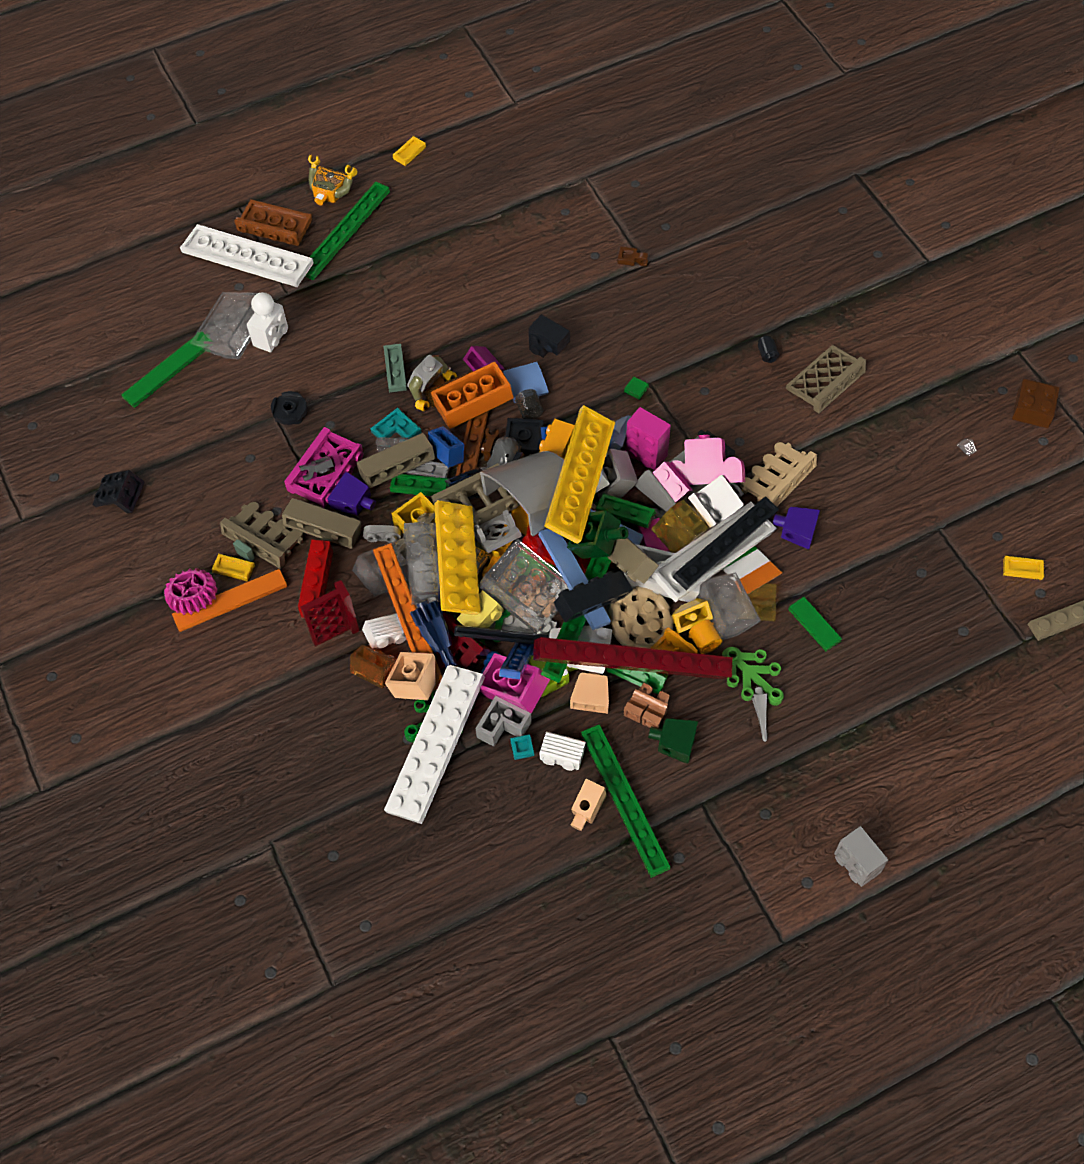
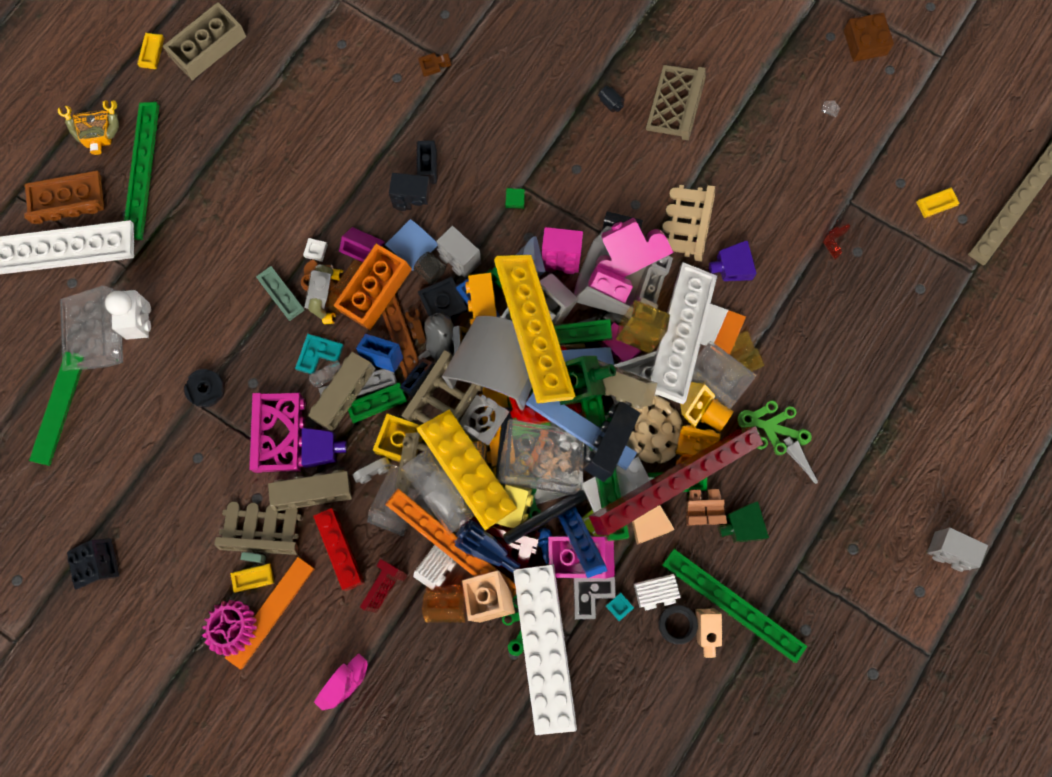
camera: 30 degrees left, 15 degrees up
(250, 678) = (342, 683): none -> dark pink connector
(320, 465) = (273, 435): dark grey plate -> none
(444, 349) = (315, 249): none -> white plate
(455, 160) = (204, 41): none -> dark tan brick
(559, 400) = (458, 252): none -> light grey brick
(559, 774) = (691, 617): none -> black tyre
(579, 323) = (427, 160): none -> black brick
(716, 501) = (658, 282): bracket -> none
(725, 543) = (691, 321): black plate -> none
(815, 624) = (798, 350): green tile -> none
(906, 546) = (829, 240): none -> clear red bracket

